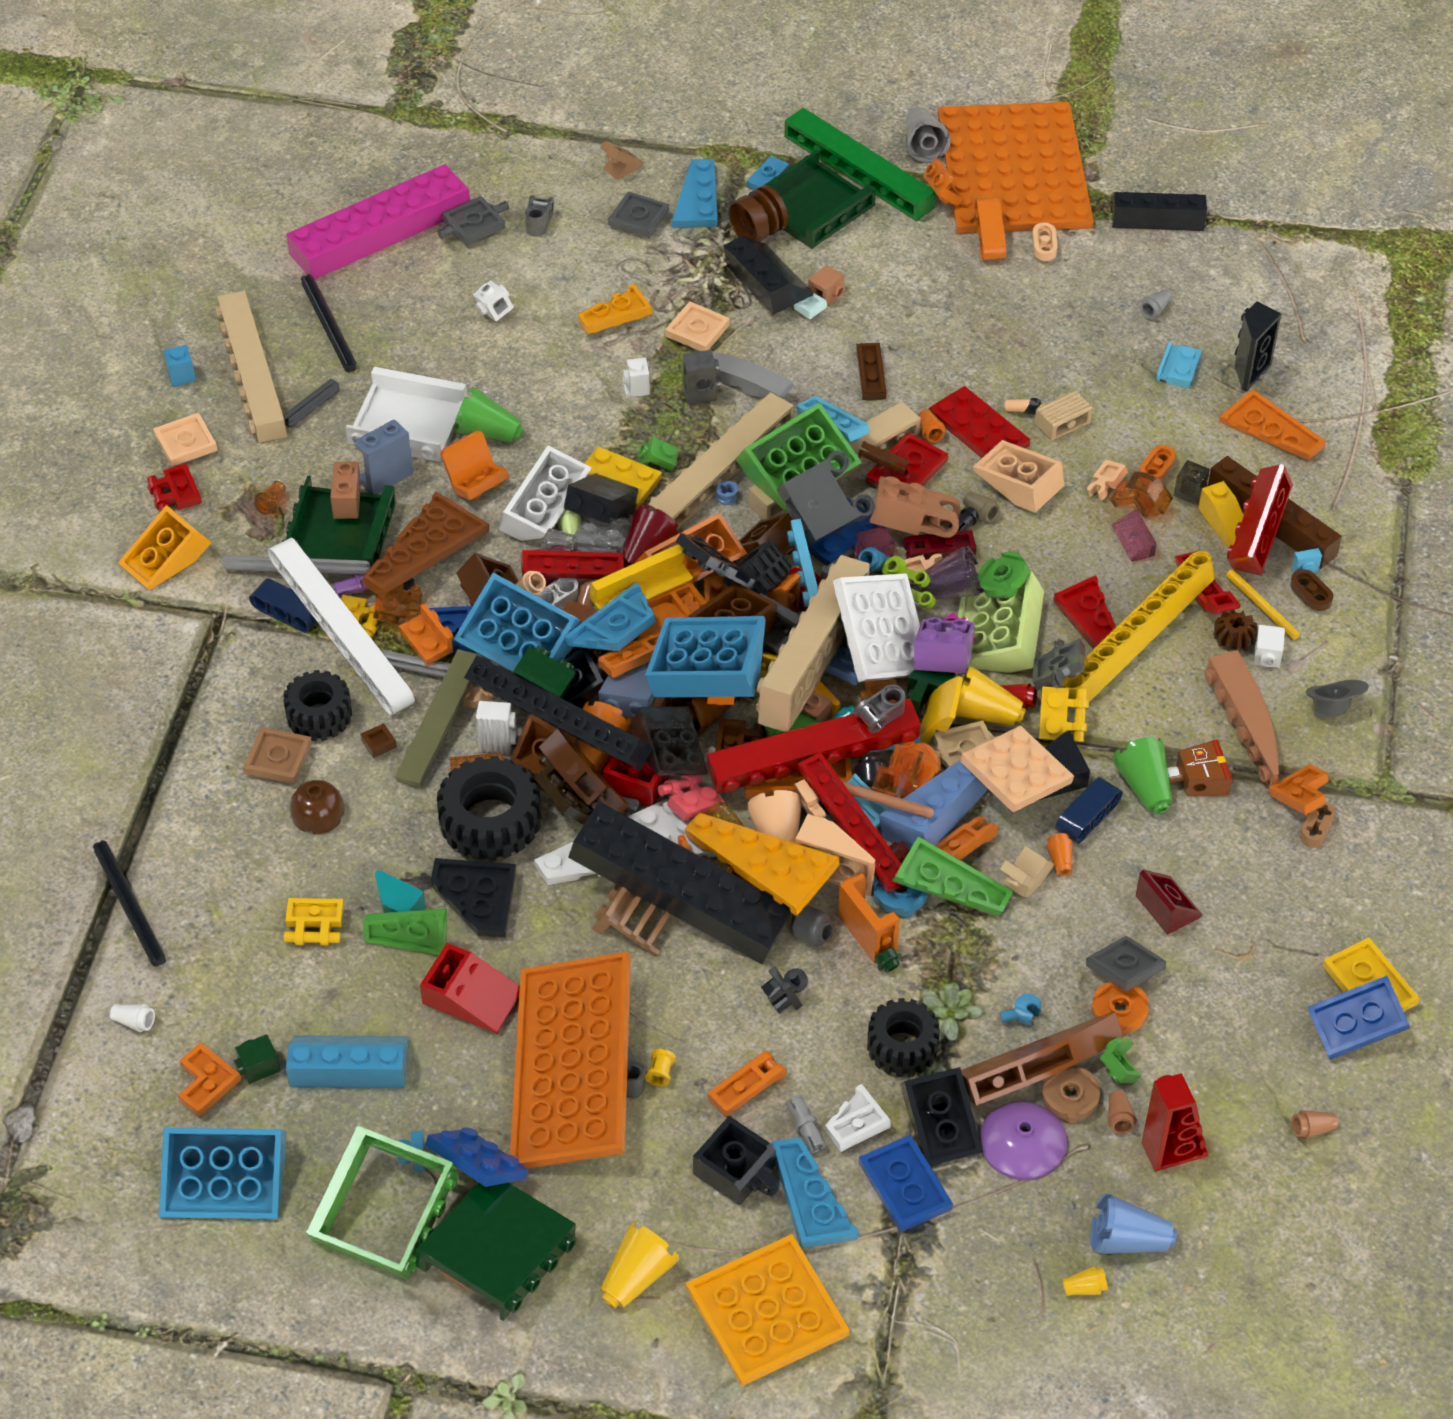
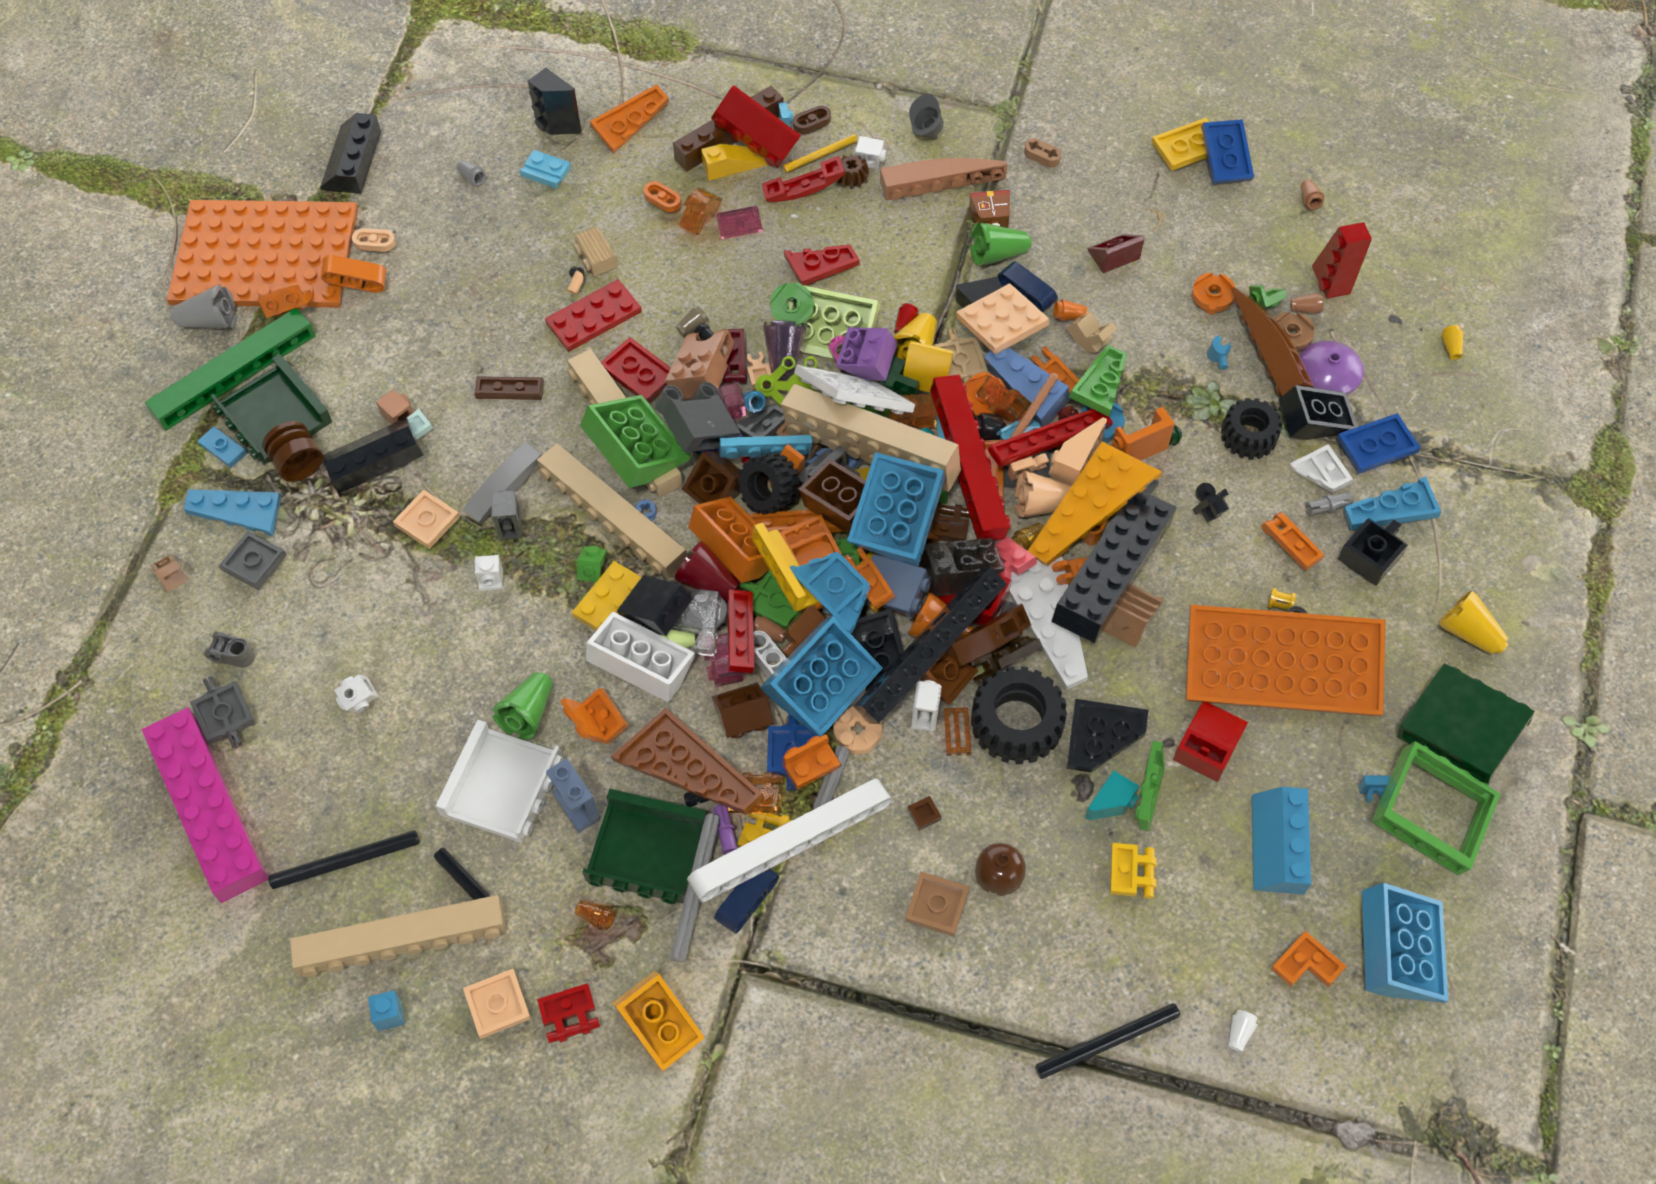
camera: 85 degrees left, 10 degrees up
(256, 1059) = (1287, 917): dark green brick -> none
(312, 690) = (889, 845): black tyre -> none
(345, 490) = (608, 834): nougat brick -> none
(436, 721) = (905, 757): olive tile -> none
(477, 1156) = (1389, 733): blue plate -> none
(532, 582) = (763, 668): light nougat cone -> none
(545, 672) = (888, 650): dark green slope -> none
(619, 310) = (388, 586): light orange wing -> none
(710, 558) = (766, 507): black wing -> none
(767, 1310) = (1496, 542): light orange plate -> none
(849, 425) = (569, 420): medium azure plate -> none
(878, 711) = (952, 394): flat silver piece -> none
(883, 457) = (636, 379): reddish brown pin -> none
(931, 427) = (594, 343): orange cone -> none
(1021, 475) = (665, 286): light nougat slope -> none
(1054, 713) = (931, 294): yellow plate -> none
(1059, 663) = (887, 281): dark grey plate -> none
(1107, 476) = (672, 230): light nougat plate -> none
(1126, 963) = (1177, 281): dark grey plate -> none
(1129, 1229) = (1414, 311): medium blue cone -> none
(1143, 625) = (852, 235): yellow beam -> none
(1191, 481) = (692, 173): clear smoke brick -> none
(1300, 789) = (1016, 157): orange plate -> none

